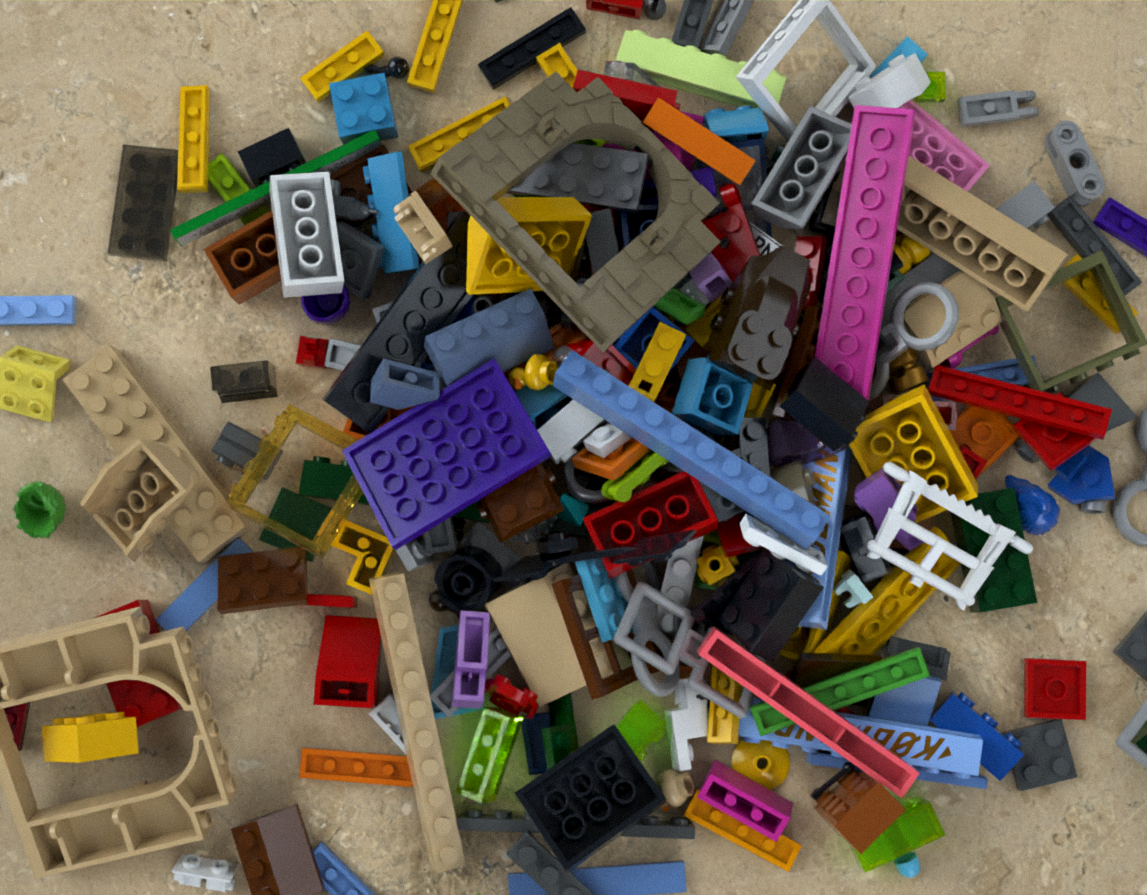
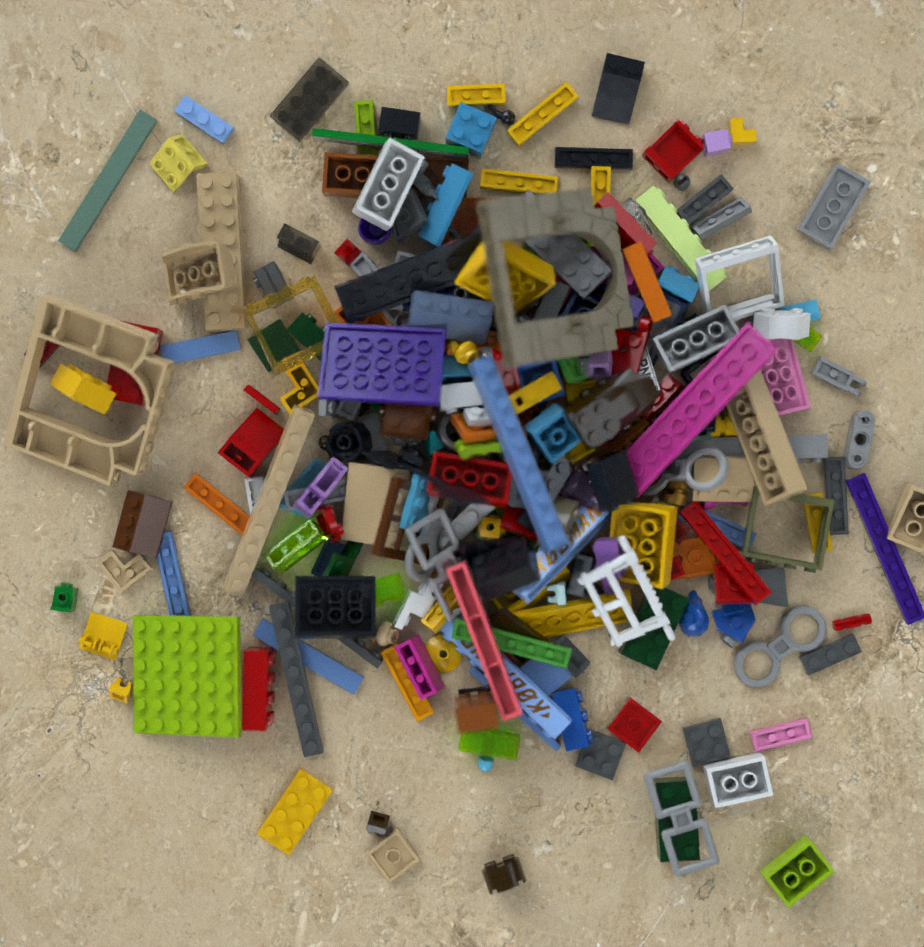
camera: 35 degrees right, 5 degrees up
(39, 509) = (135, 239): bright green hair -> none
(192, 869) = (92, 498): white hinge -> none
(193, 139) = (361, 80): yellow tile -> none
(262, 580) = (234, 364): reddish brown plate -> none
(403, 385) = (384, 309): sand blue slope -> none
(421, 228) = (454, 226): tan hinge -> none
(759, 533) = (525, 527): white plate -> none

